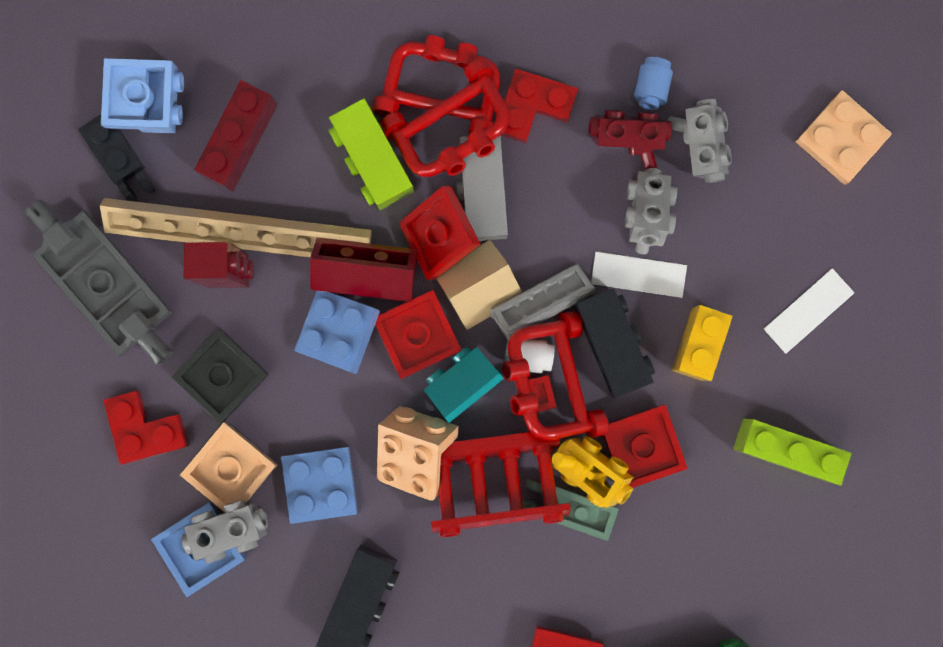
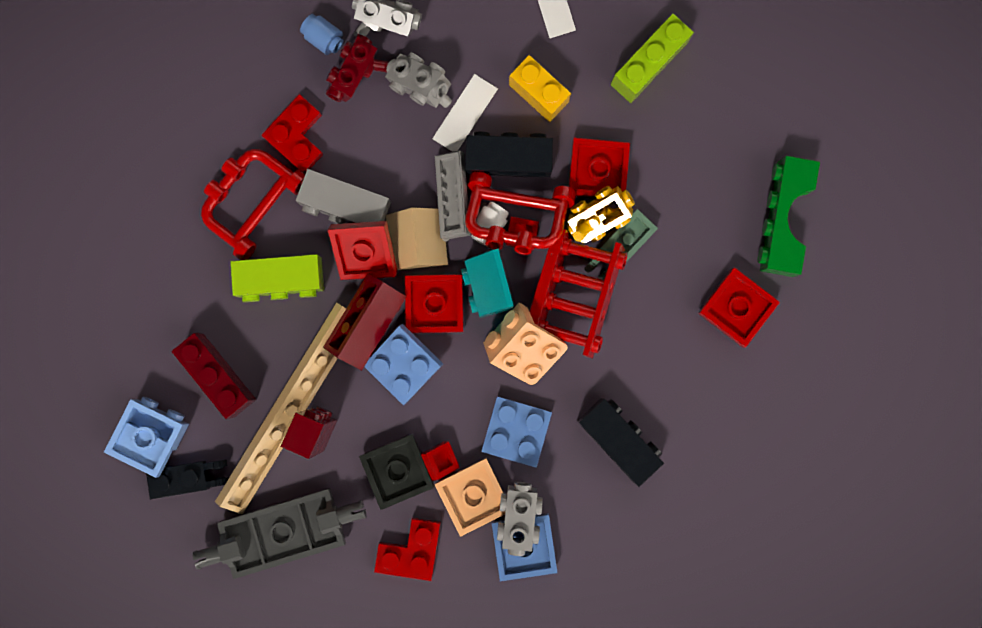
camera: 65 degrees left, 0 degrees up
(251, 417) = (440, 460): none -> red plate
(479, 141) = (310, 214): red bar -> none

